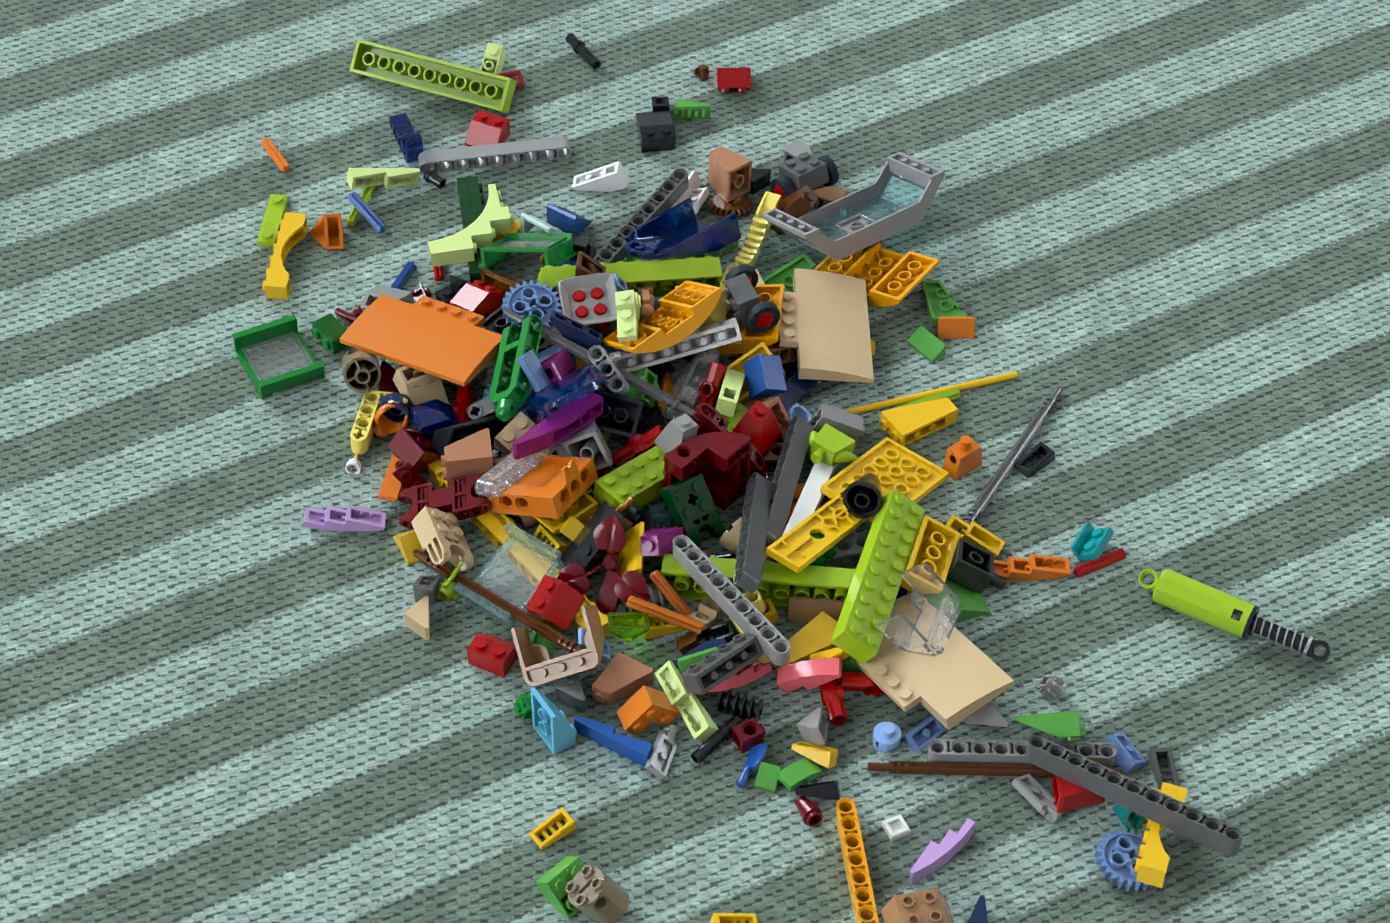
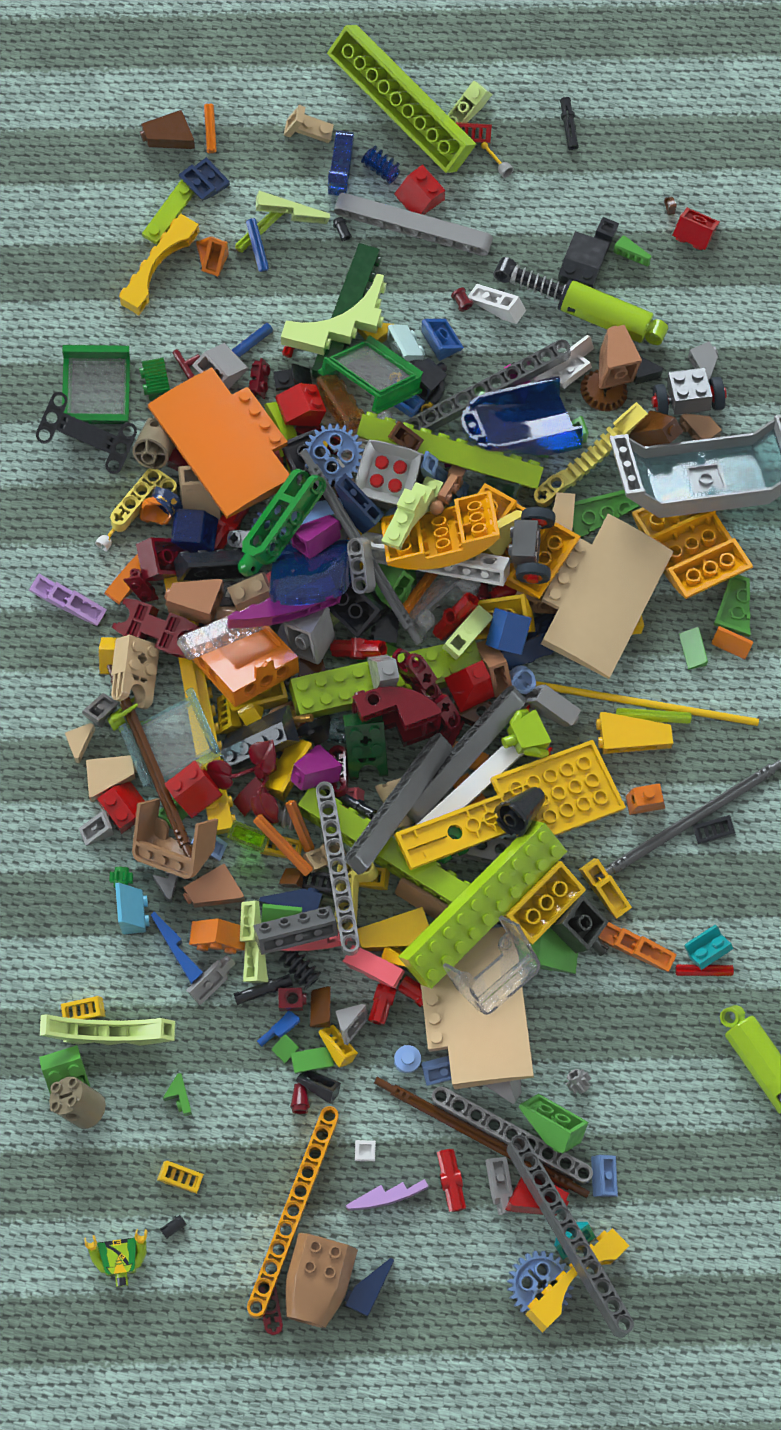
camera: 25 degrees right, 25 degrees up
(240, 167) = (168, 132): none -> reddish brown slope
(292, 186) = (204, 179): none -> dark blue slope
(292, 386) = (85, 432): none -> black beam
(355, 120) = (308, 126): none -> tan bracket
(442, 126) = (381, 165): none -> clear blue piece
(462, 629) = (108, 773): none -> tan slope
(480, 677) = (96, 829): none -> light grey slope
(533, 371) = (290, 540): medium blue slope -> none
(548, 95) = (504, 168): none -> light grey hinge
(569, 188) = (462, 299): none -> dark red bush
(593, 830) = (107, 1032): none -> yellowish green arch
(672, 151) = (587, 303): none -> lime piece
(691, 853) = (178, 1090): none -> bright green slope
(781, 729) = (320, 1007): none -> reddish brown slope
(991, 813) = (451, 1180): none -> red piece
(1166, 753) = (626, 1191): dark grey slope -> none

